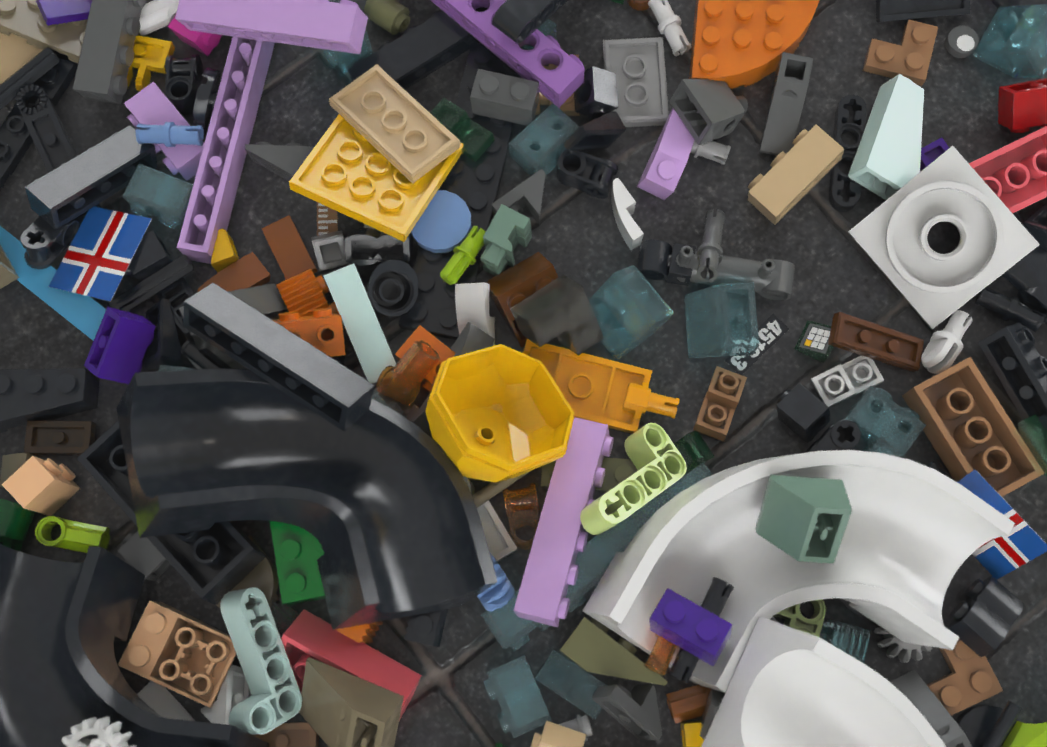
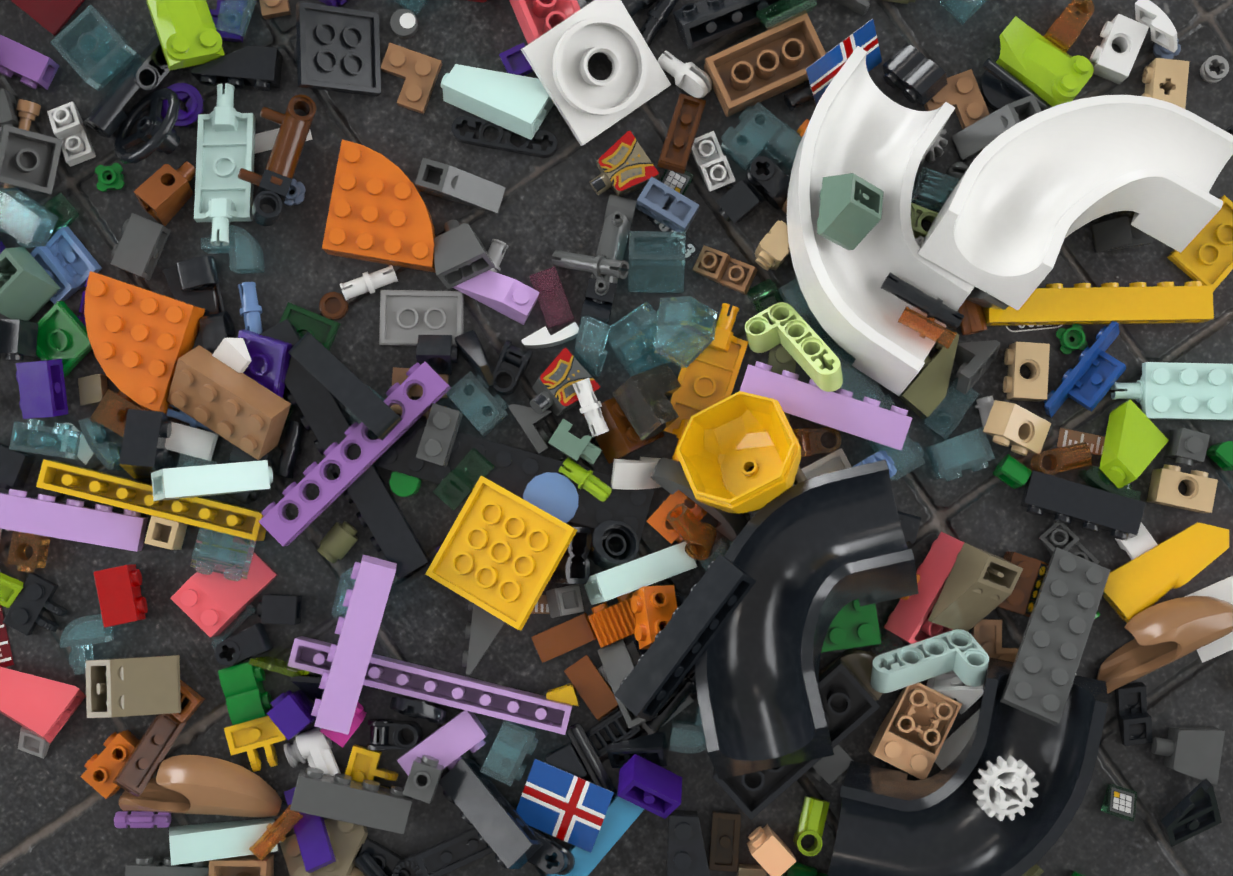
camera: 90 degrees left, 10 degrees up
(129, 103) = (423, 778): none -> dark grey brick
(170, 134) = (455, 742): medium blue pin -> none
(394, 123) = (460, 535): tan tile -> none
(450, 73) = (404, 485): none -> green brick
(545, 251) = (590, 407): none -> white pin
(569, 226) = (555, 385): none -> torso
(618, 251) = (590, 345): none -> clear light blue slope
(642, 348) = (683, 329): none -> clear light blue slope
(670, 214) = (551, 297): none -> clear pink plate
(690, 627) = (925, 308): dark purple brick -> none
(751, 447) = (773, 247): none -> tan brick
(788, 328) = (667, 206): none -> sand blue brick
(794, 173) = (525, 185): tan brick -> none
(827, 280) = (624, 168): none -> torso

